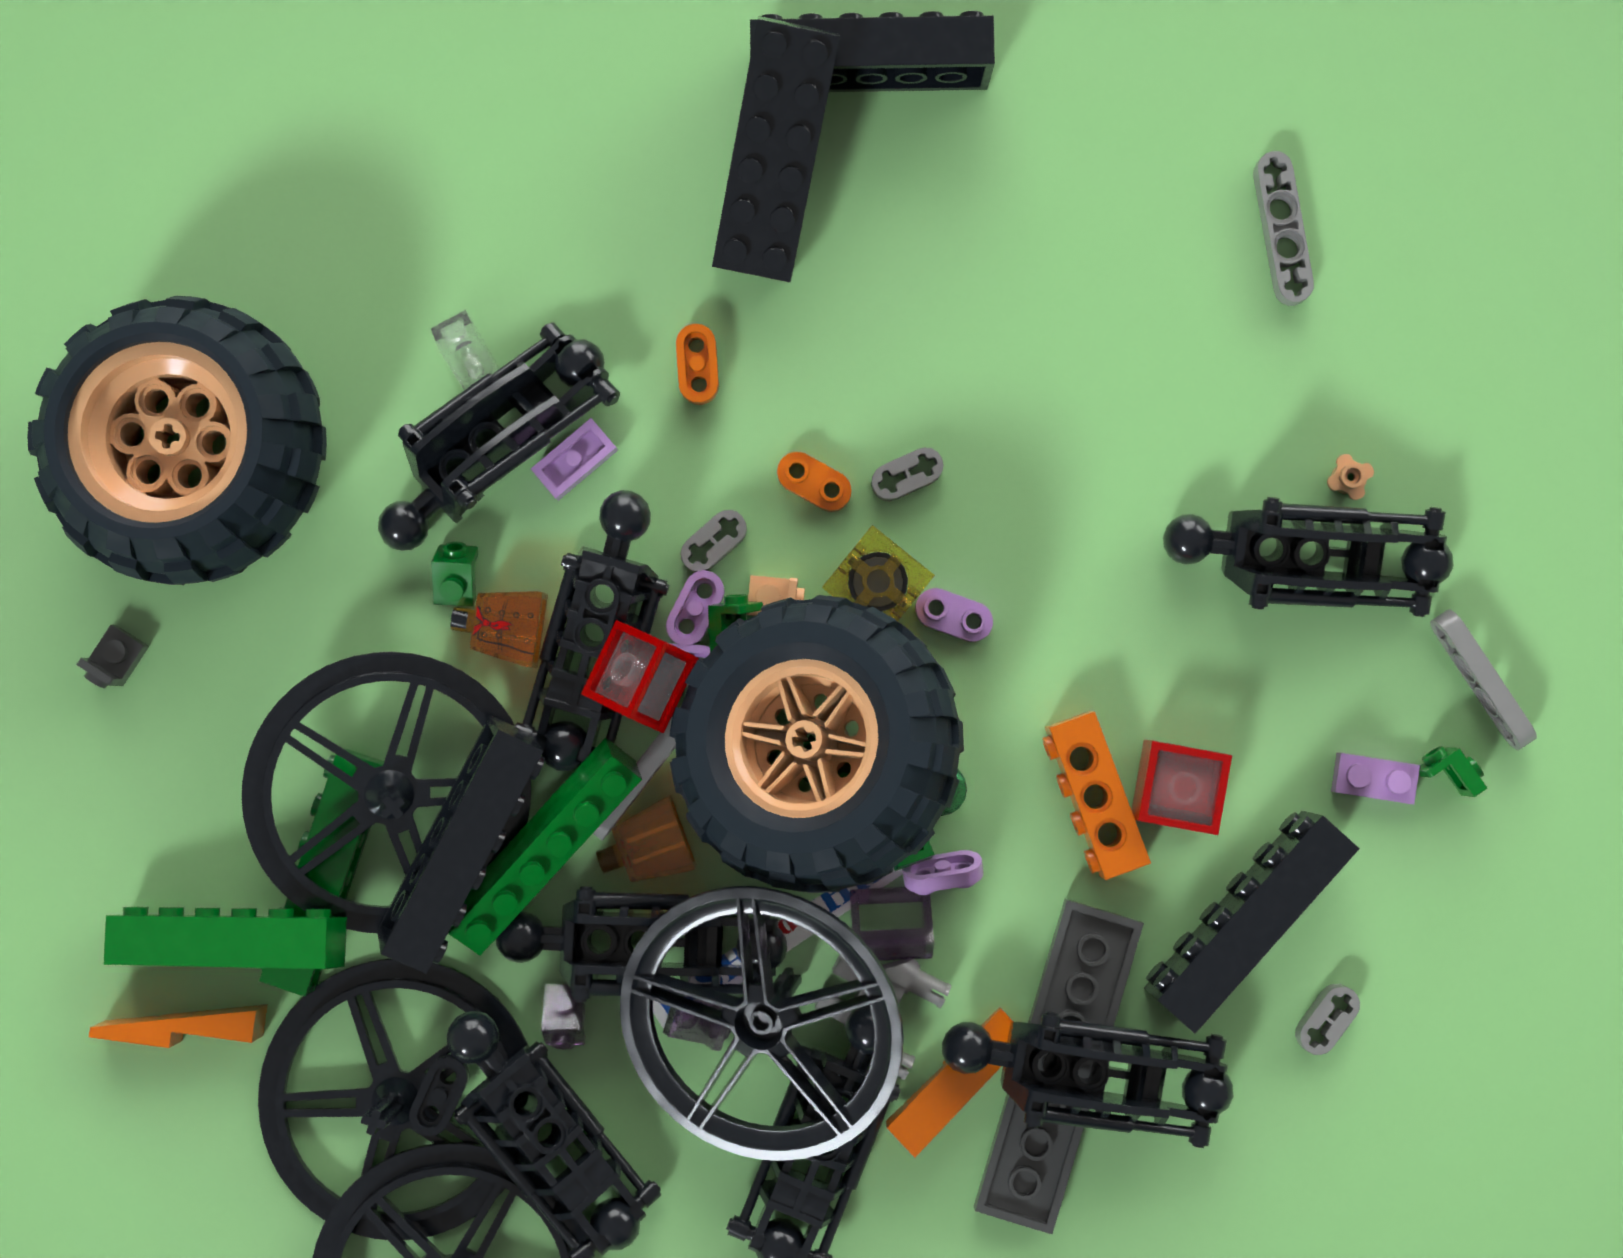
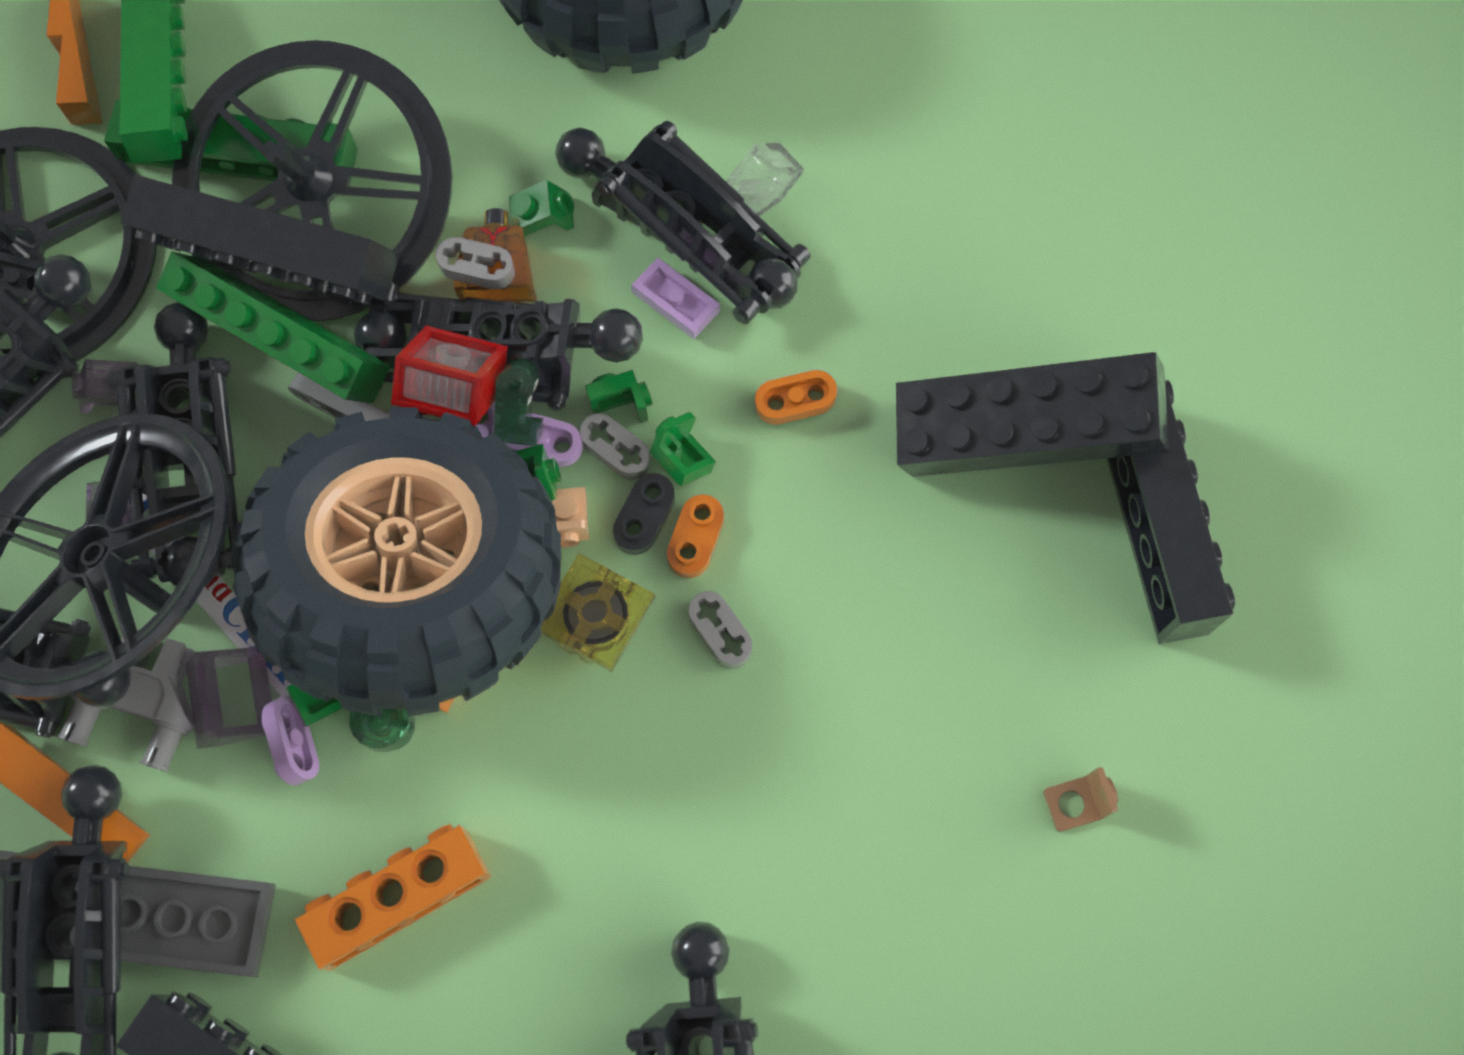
camera: 80 degrees right, 15 degrees down
(504, 637) = (474, 266): none -> light grey beam
(649, 844) = (280, 424): clear orange torso -> none
(660, 536) = (613, 391): none -> green bracket
(660, 618) = (515, 402): none -> clear green leg
(734, 479) = (679, 451): none -> green bracket
(783, 525) = (645, 512): none -> black plate
(954, 615) = (577, 706): lavender plate -> none
(1118, 175) = (1097, 795): none -> medium nougat bracket
(1181, 787) = (411, 990): piece -> none
(1288, 228) = (1086, 1011): light grey beam -> none

